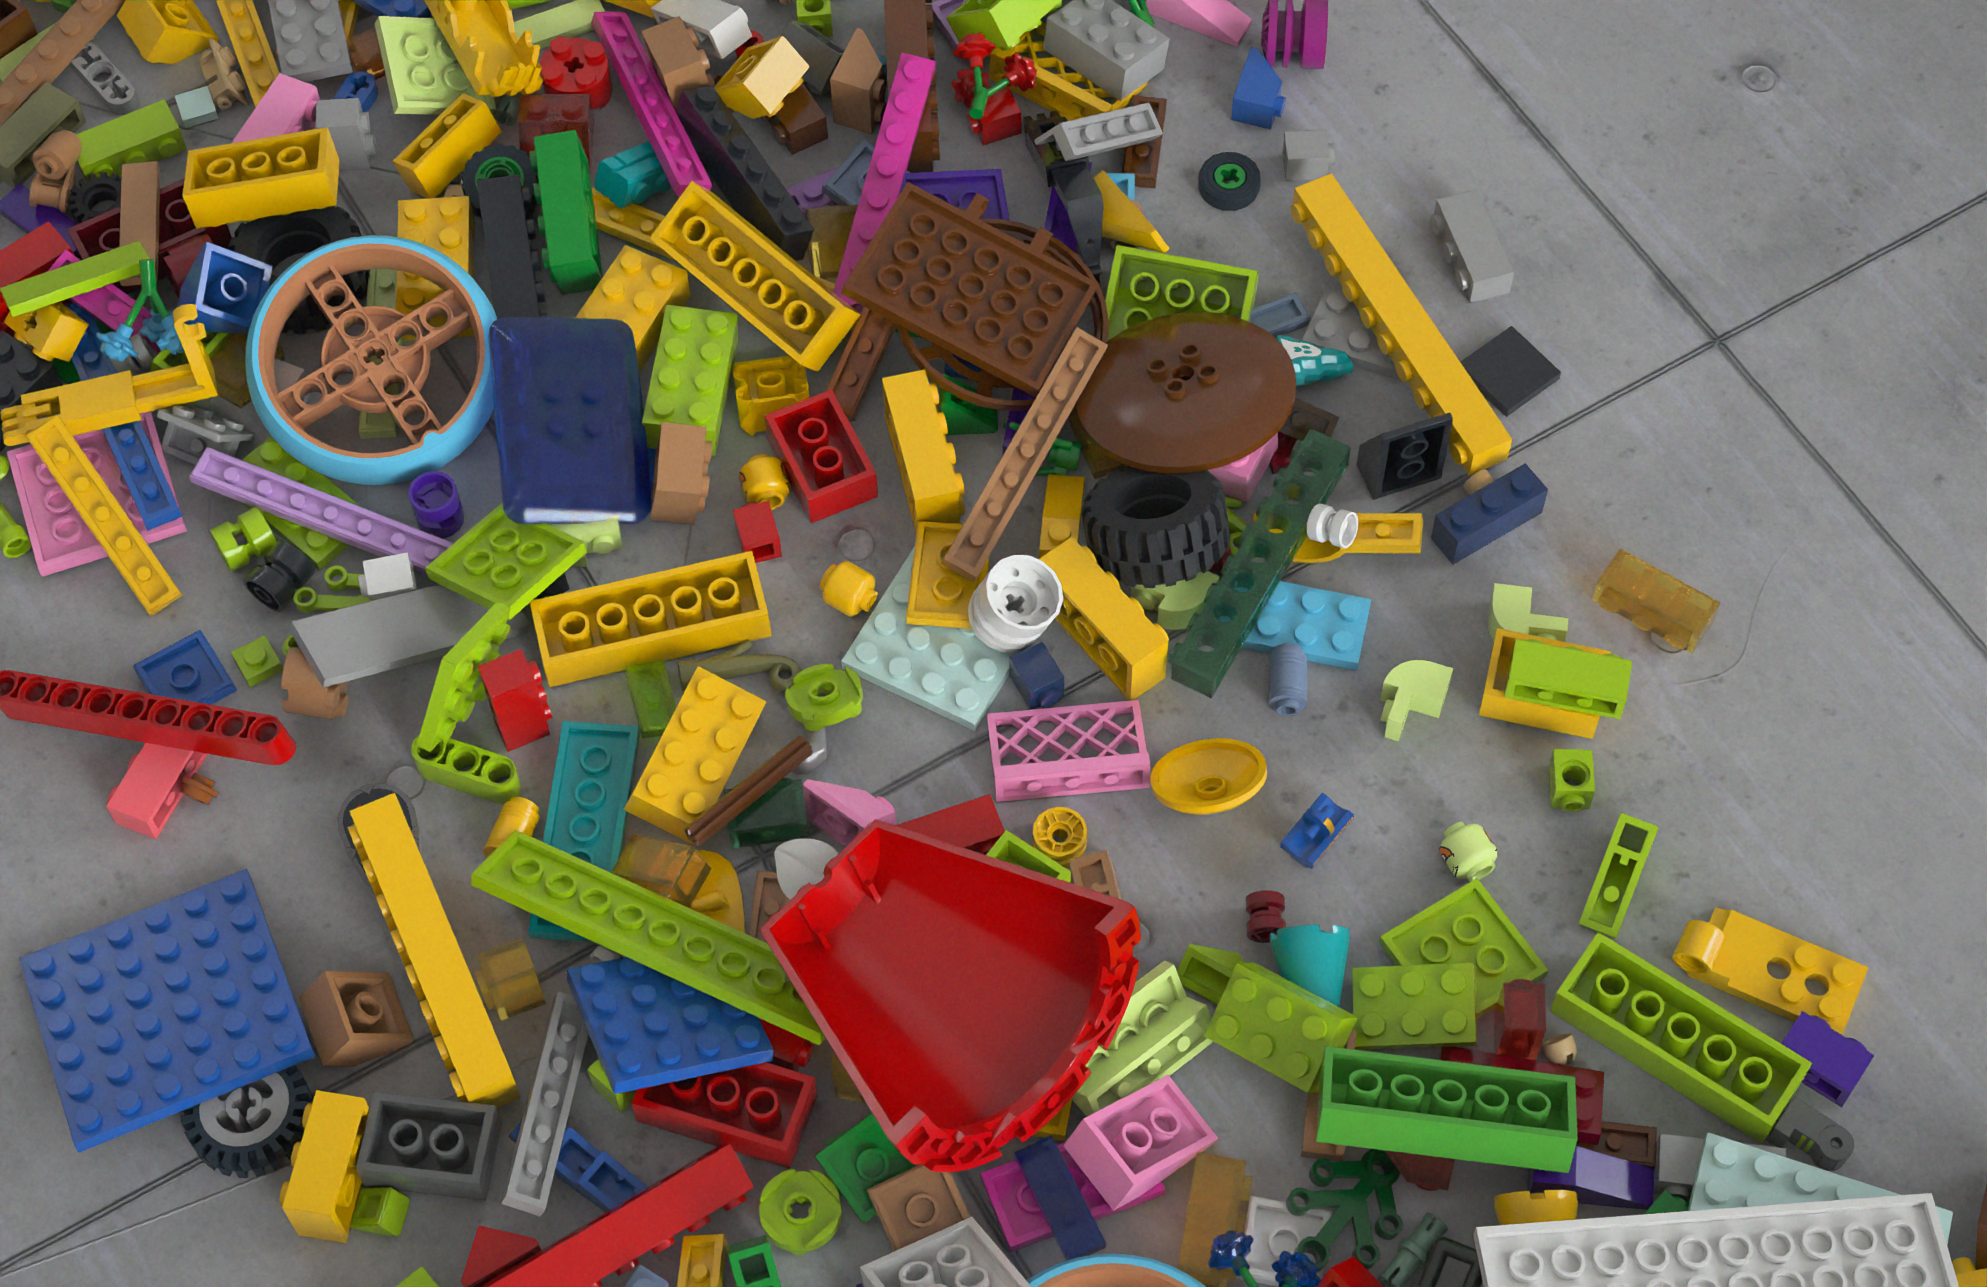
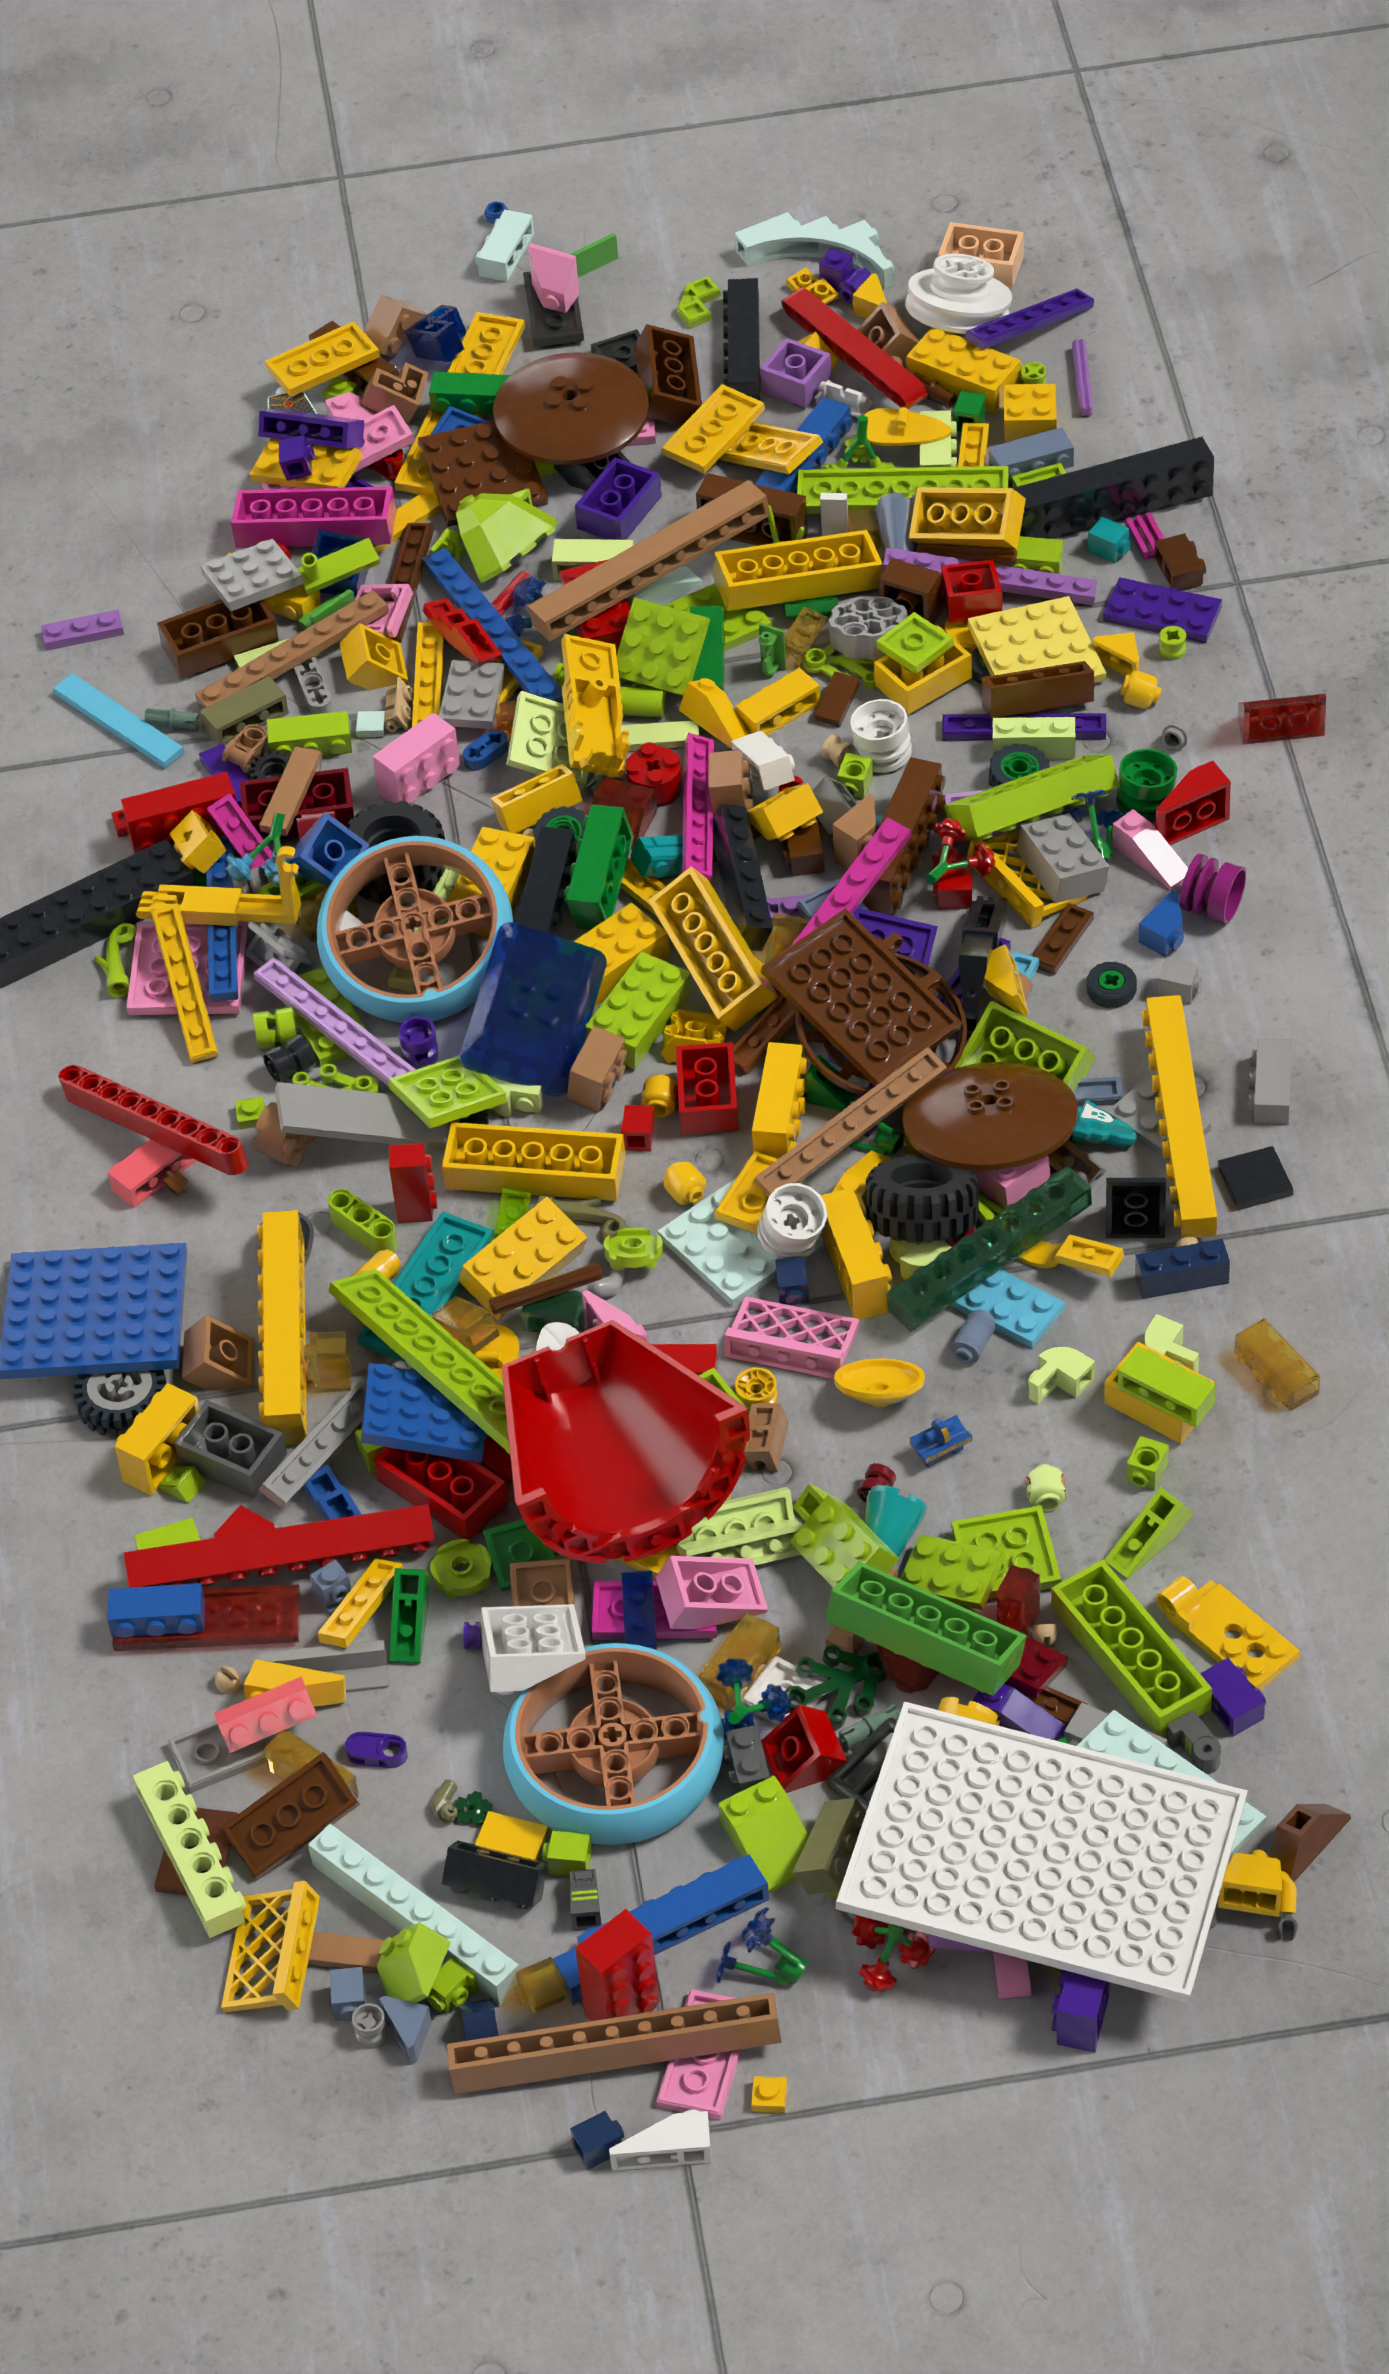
camera: 25 degrees right, 10 degrees down
(57, 154) = (253, 728): medium nougat brick -> none
(73, 279) = (226, 815): lime tile -> none
(186, 672) = (202, 1102): blue tile -> none
(261, 178) = (386, 781): yellow brick -> none
(348, 130) = (465, 770): light grey brick -> none
(387, 576) = (362, 1077): white brick -> none
(458, 678) = (369, 1159): lime plate -> none
(1104, 132) = (1021, 918): light grey panel -> none
(1330, 525) = (1051, 1237): white wheel -> none

